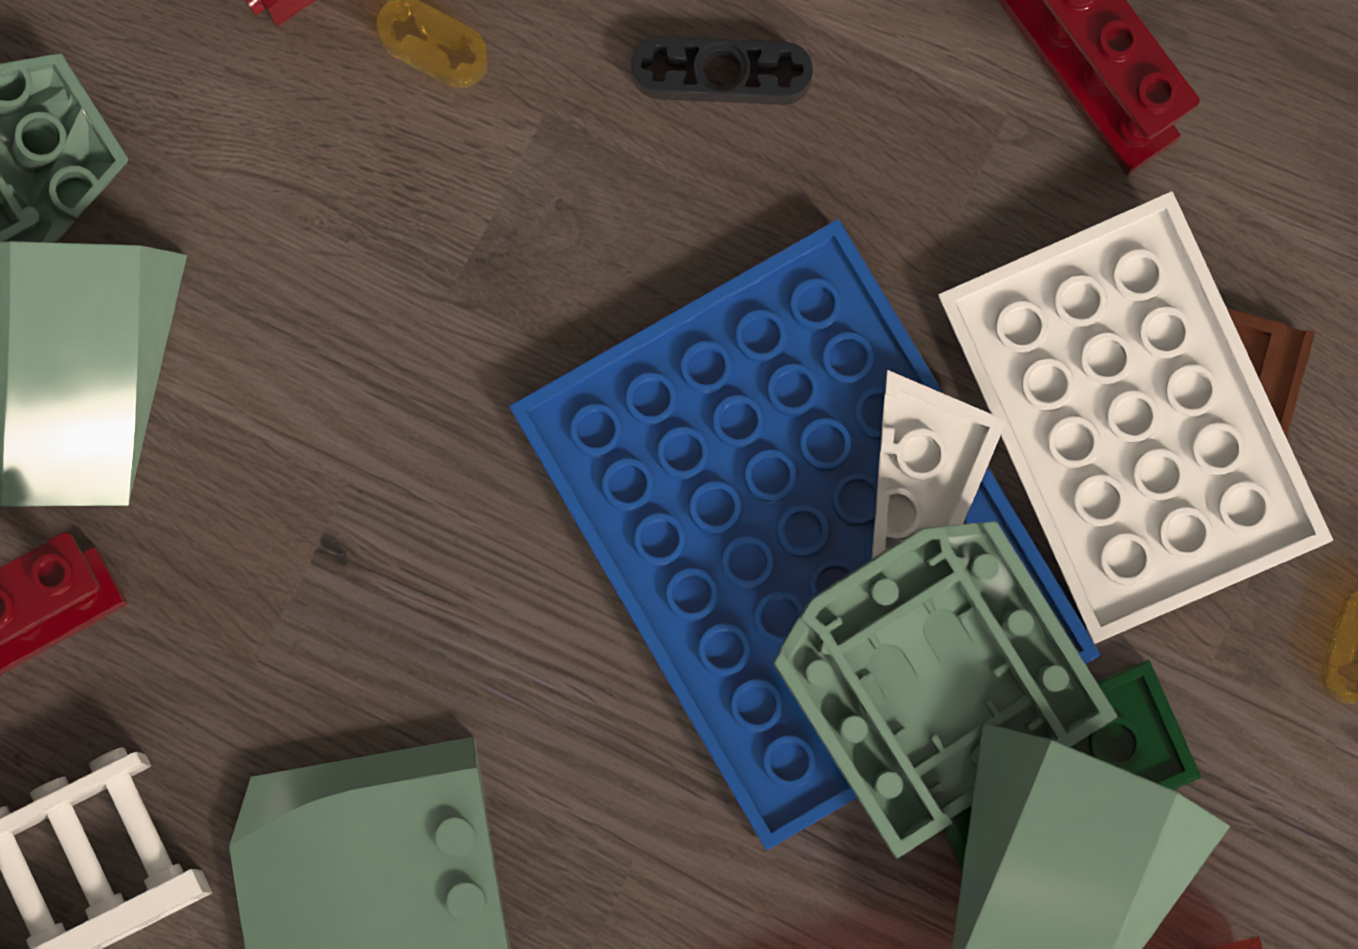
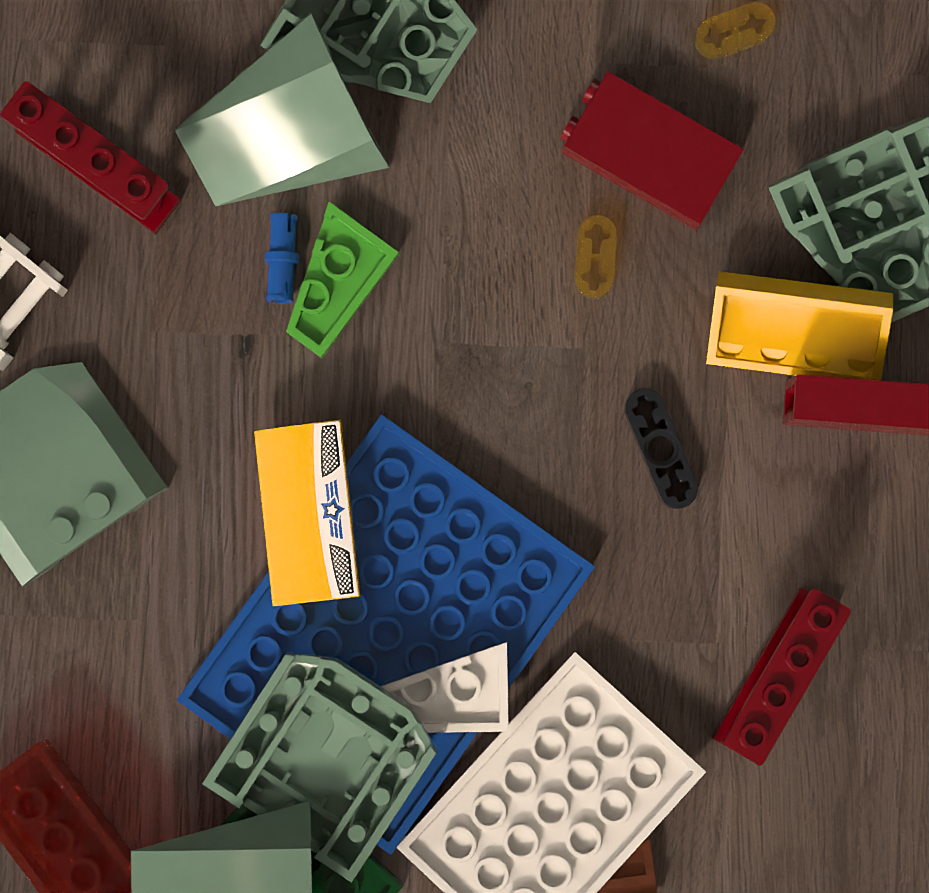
camera: 65 degrees right, 5 degrees up
(239, 446) = (281, 258): none -> blue pin
(304, 385) = (339, 279): none -> bright green wing
(596, 558) = (307, 513): none -> yellow slope

